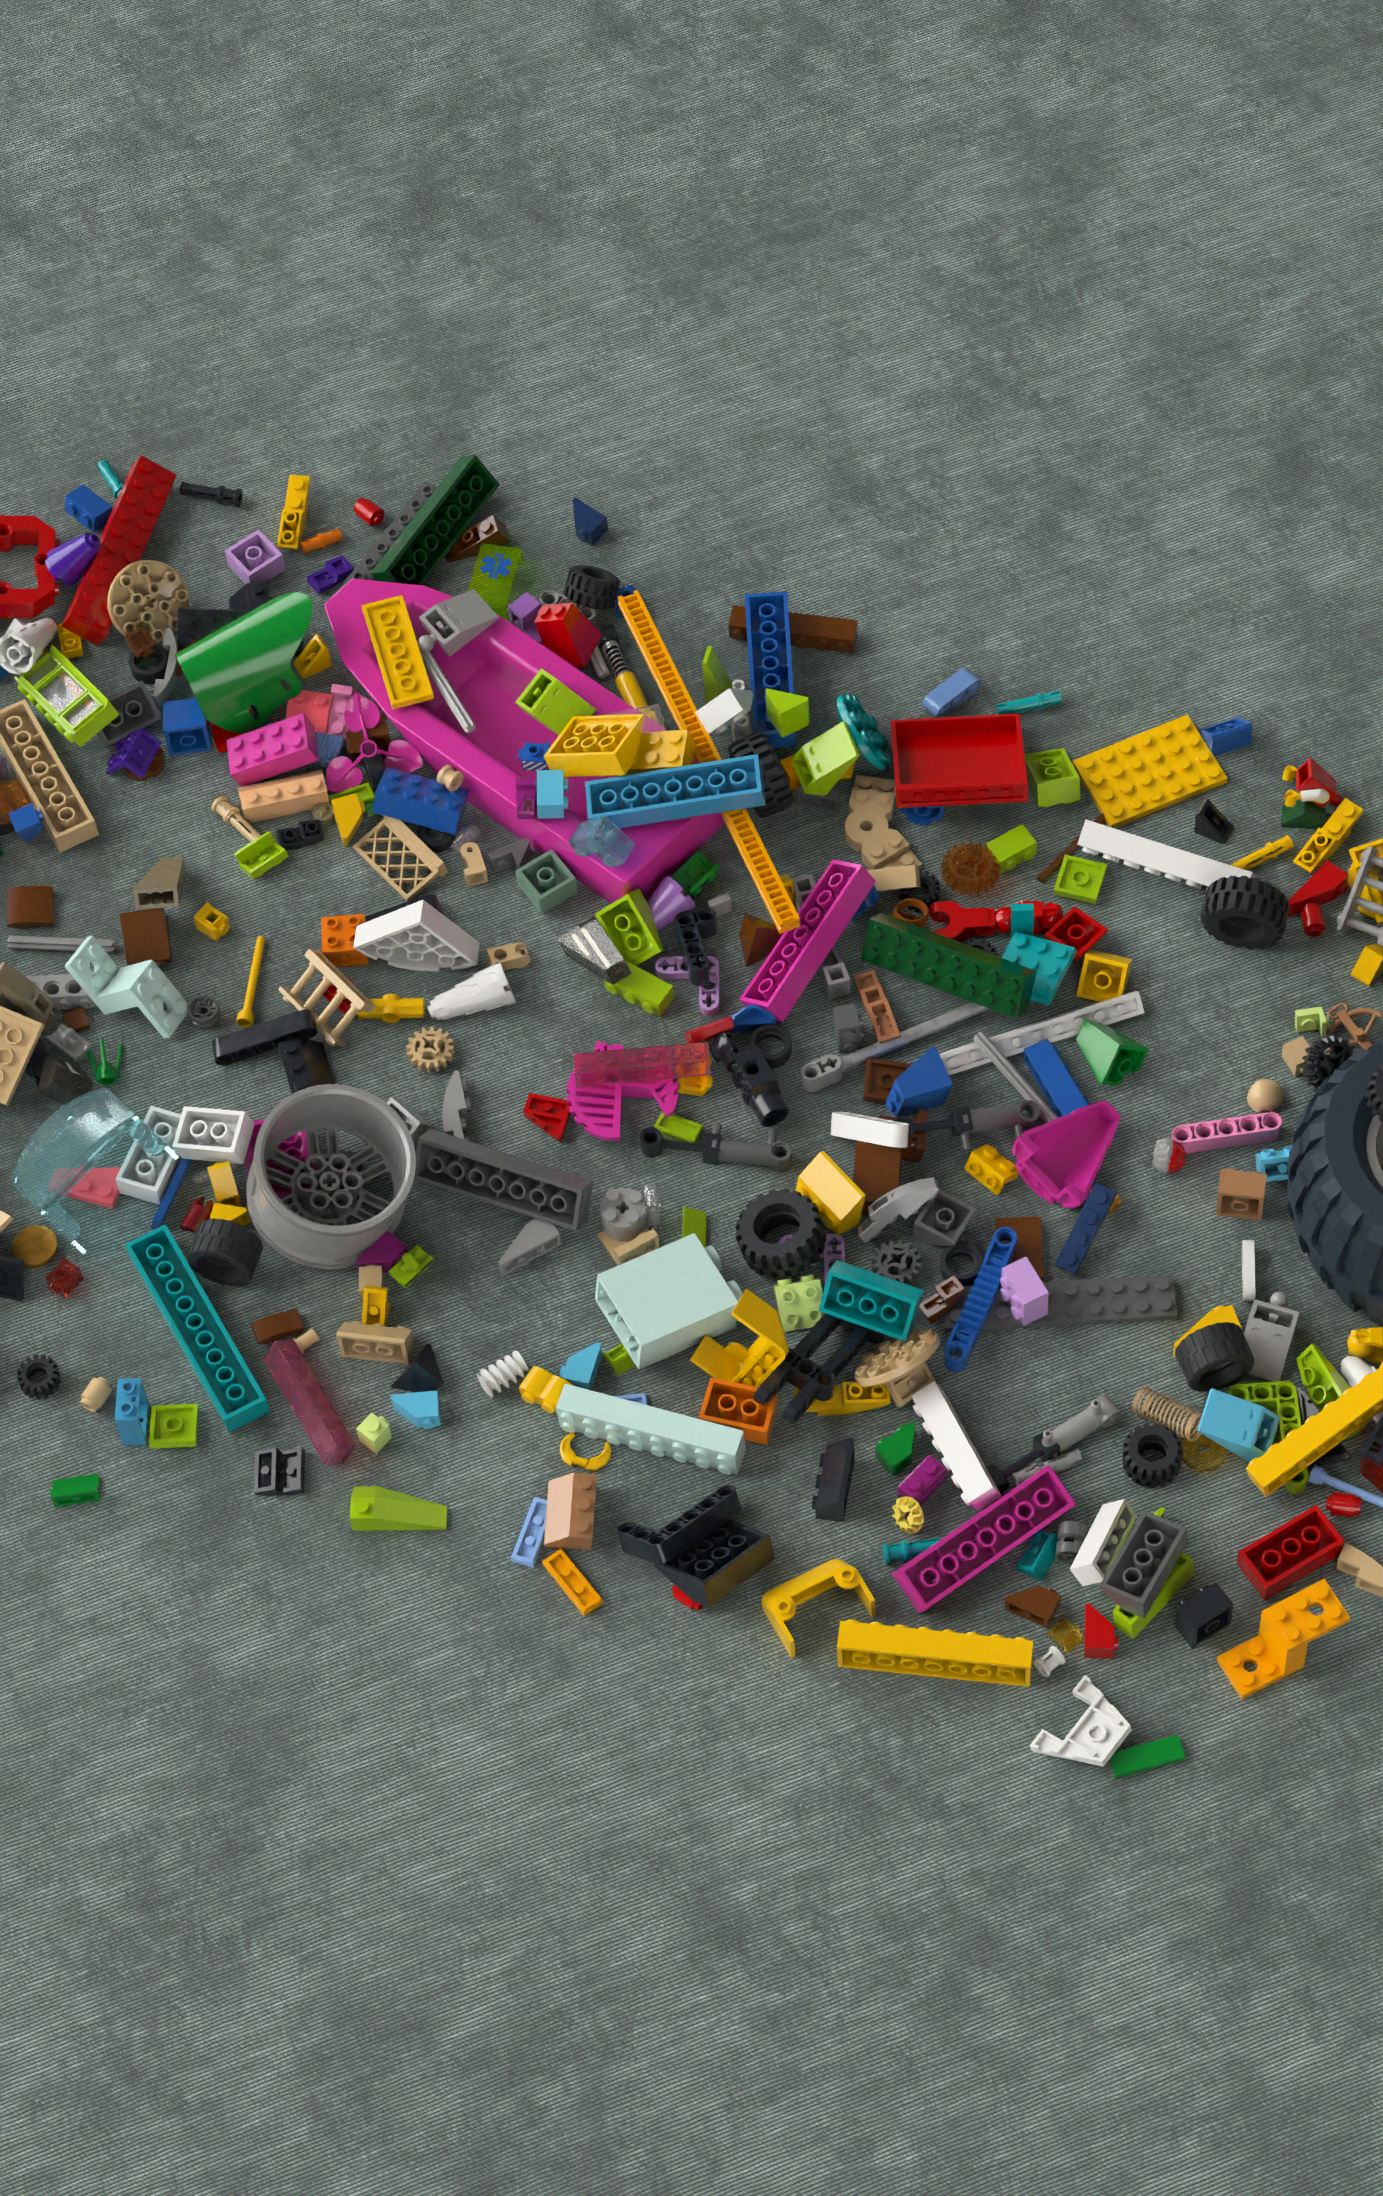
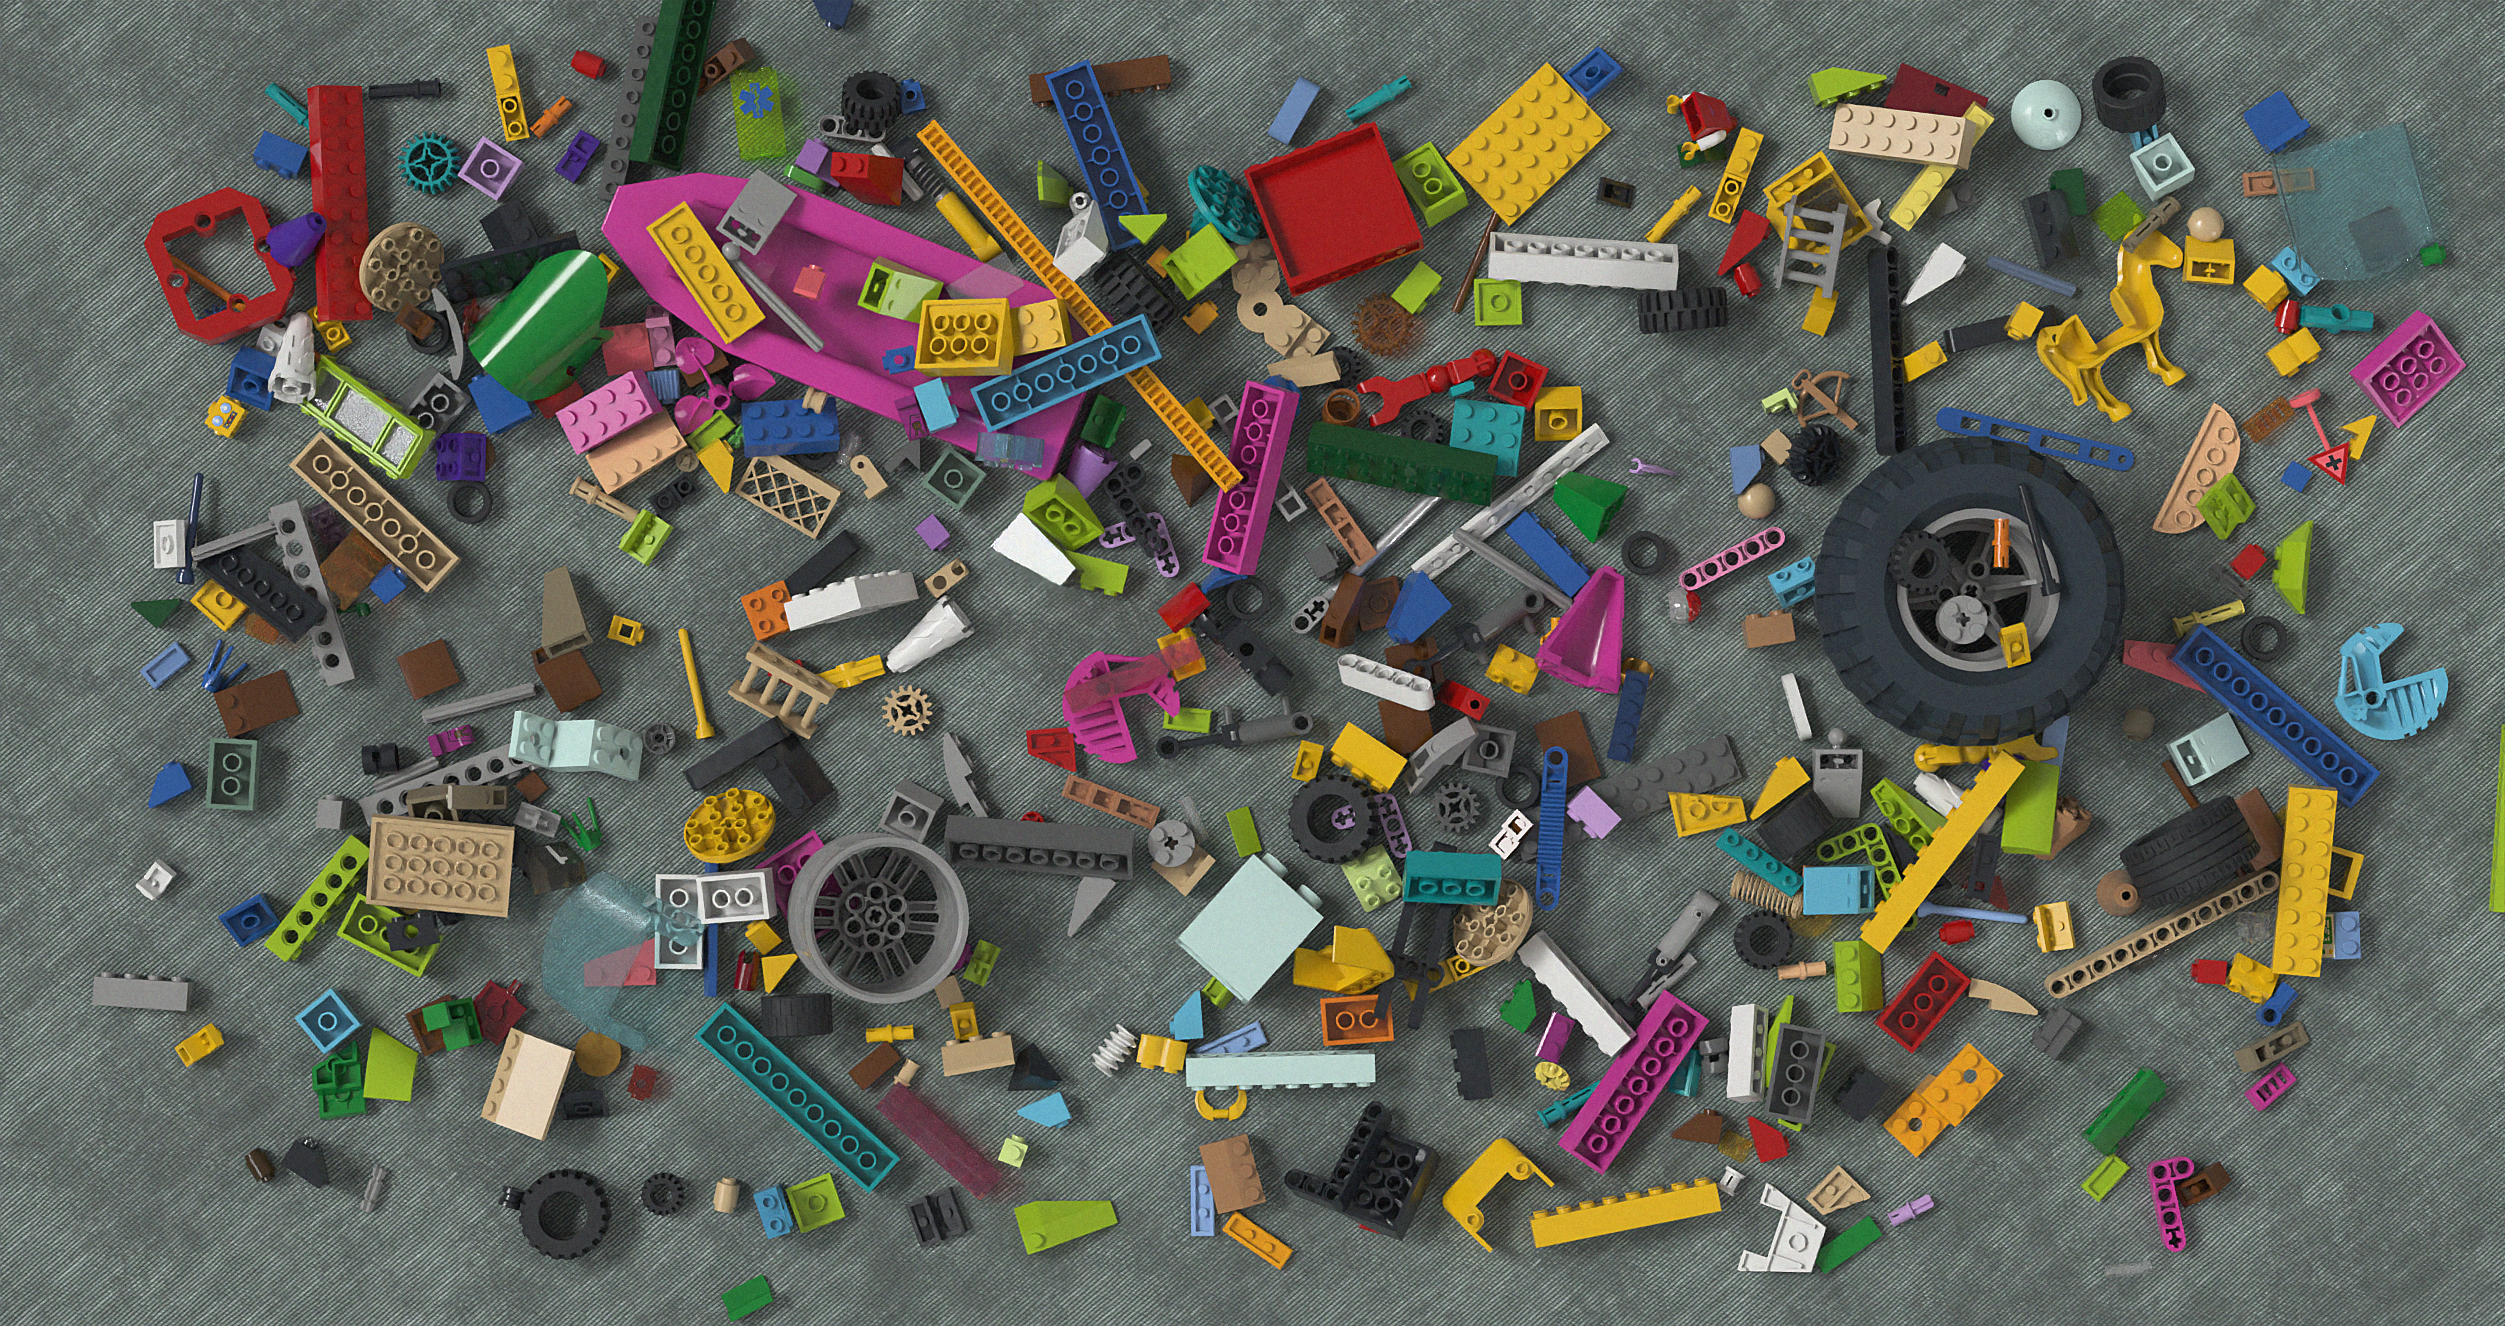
camera: 25 degrees left, 30 degrees up
(26, 963) = (451, 740): none -> magenta leg
(124, 779) = (472, 519): none -> black tyre
(205, 545) = (427, 151): none -> teal gear
(231, 1093) = (730, 826): none -> yellow bracket
(303, 1304) = (890, 1033): none -> yellow pin
(481, 684) = (811, 283): none -> coral slope
(511, 919) = (933, 533): none -> medium lavender brick
(572, 1162) = (1110, 801): none -> nougat slope
(776, 1179) = (1307, 761): none -> yellow slope
(812, 822) = (1201, 316): none -> light orange brick
(849, 1075) = (1343, 613): none -> reddish brown slope
(942, 1163) = (1460, 697): none -> red slope
(1131, 1333) = (1704, 812): none -> yellow wing
(1144, 1092) = (1625, 553): none -> black tyre
(1152, 1703) = (1836, 1192): none -> tan wing
(1168, 1381) = (1760, 862): none -> teal bracket
(1177, 1040) = (1650, 468): none -> lavender piece
(1181, 1496) = (1801, 970): none -> light nougat pin
(1219, 1742) = (1911, 1210): none -> lavender axle
(1234, 1514) = (1857, 976): none -> lime slope
(1264, 1061) = (1745, 464): none -> medium blue slope

